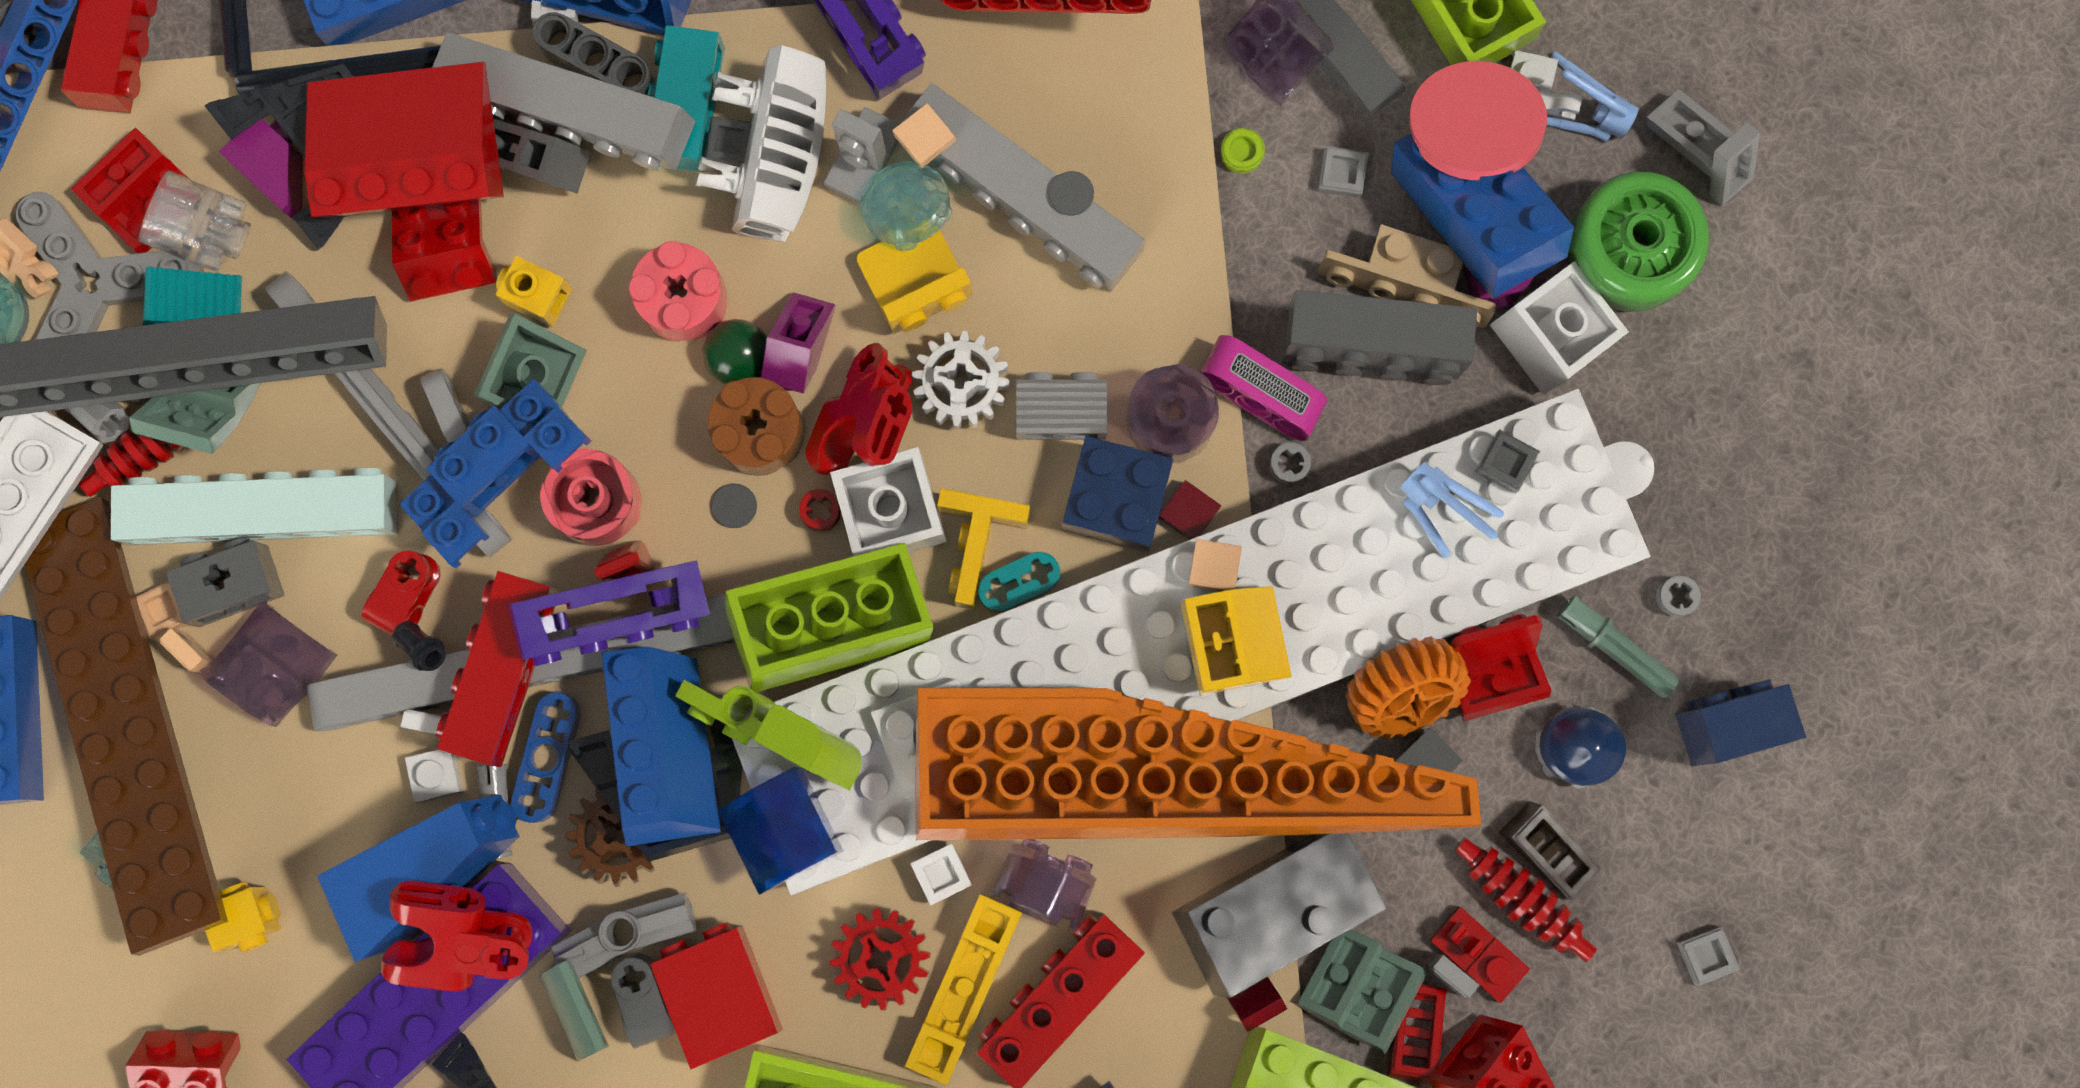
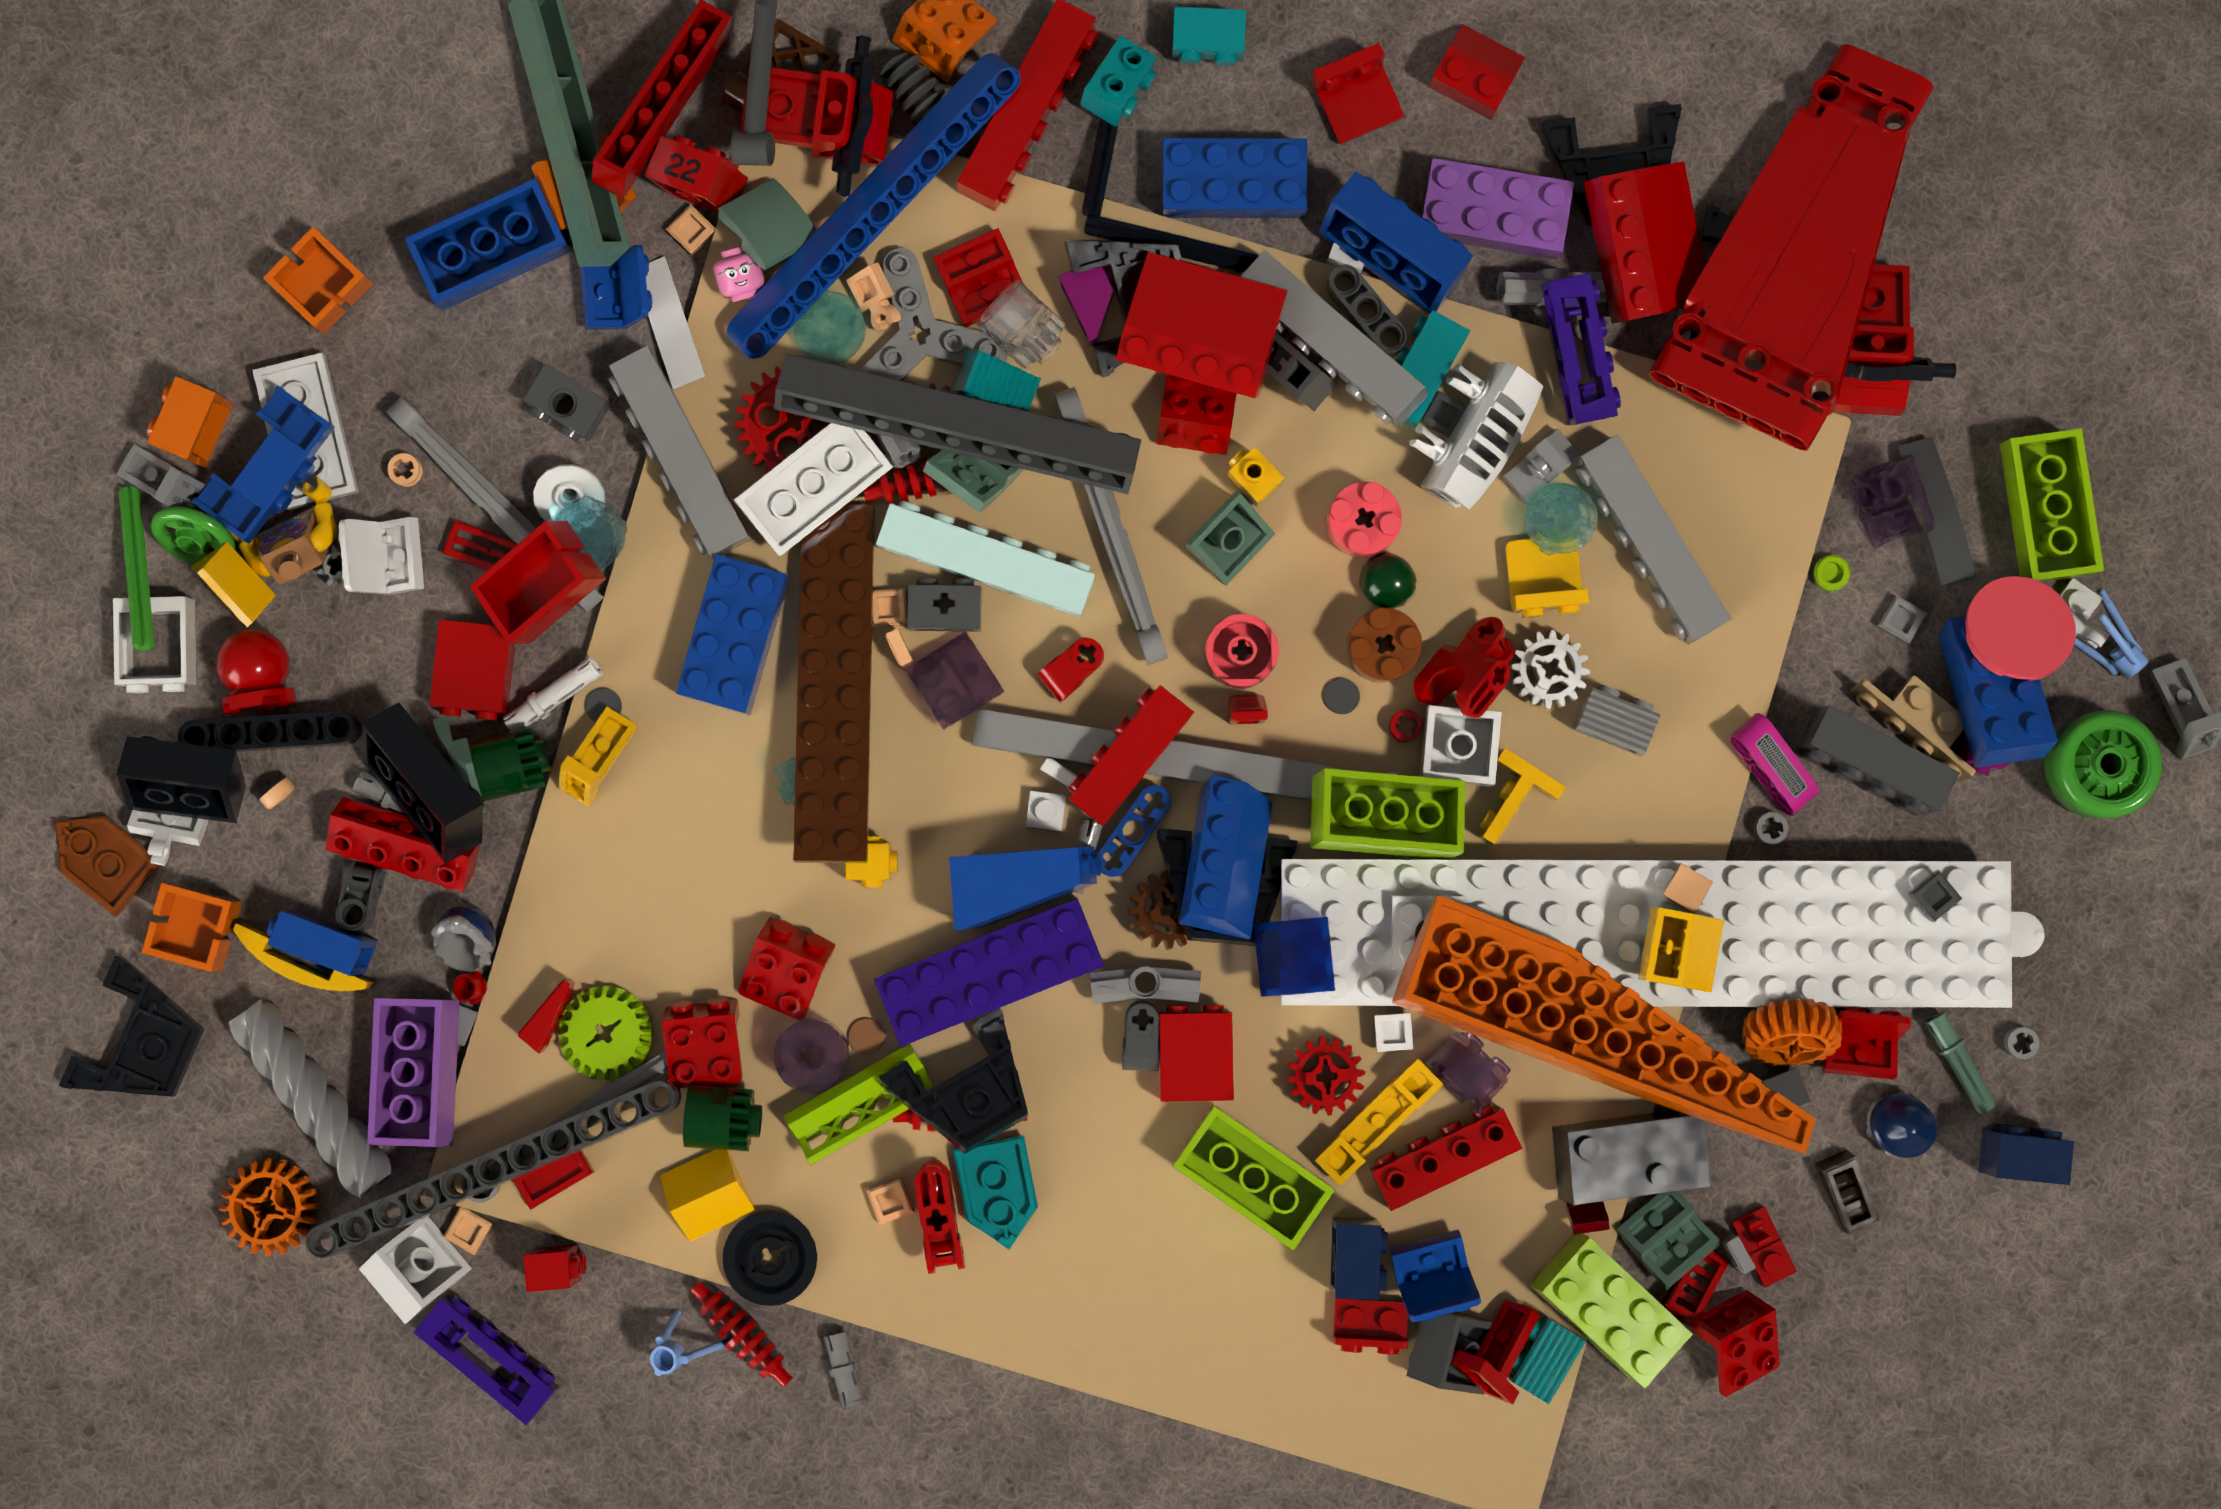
camera: 20 degrees right, 5 degrees up
(425, 651) = (1079, 720): black pin -> none
(445, 404) = (1157, 541): light grey beam -> none
(461, 942) = (1040, 946): red piece -> none
(485, 463) = (1176, 597): blue bracket -> none
(573, 1010) = (1091, 1026): sand green slope -> none
(685, 594) = (1288, 755): dark purple brick -> none
(777, 730) = (1330, 890): lime plate -> none
(797, 342) = (1438, 592): magenta slope -> none
(924, 135) = (1596, 475): light nougat tile -> none
(1014, 572) = (1534, 847): teal beam -> none
(1071, 193) = (1690, 562): dark grey piece -> none
(1117, 494) = (1633, 803): dark blue brick -> none
(1162, 390) = (1719, 762): brick -> none
(1189, 511) = (1681, 835): dark red tile -> none
(1429, 487) = (1869, 893): light blue plant -> none
(1525, 899) = (1814, 1220): red piece -> none
(1559, 328) = (2016, 807): white slope -> none
(1708, 956) = (1932, 1314): light grey tile -> none

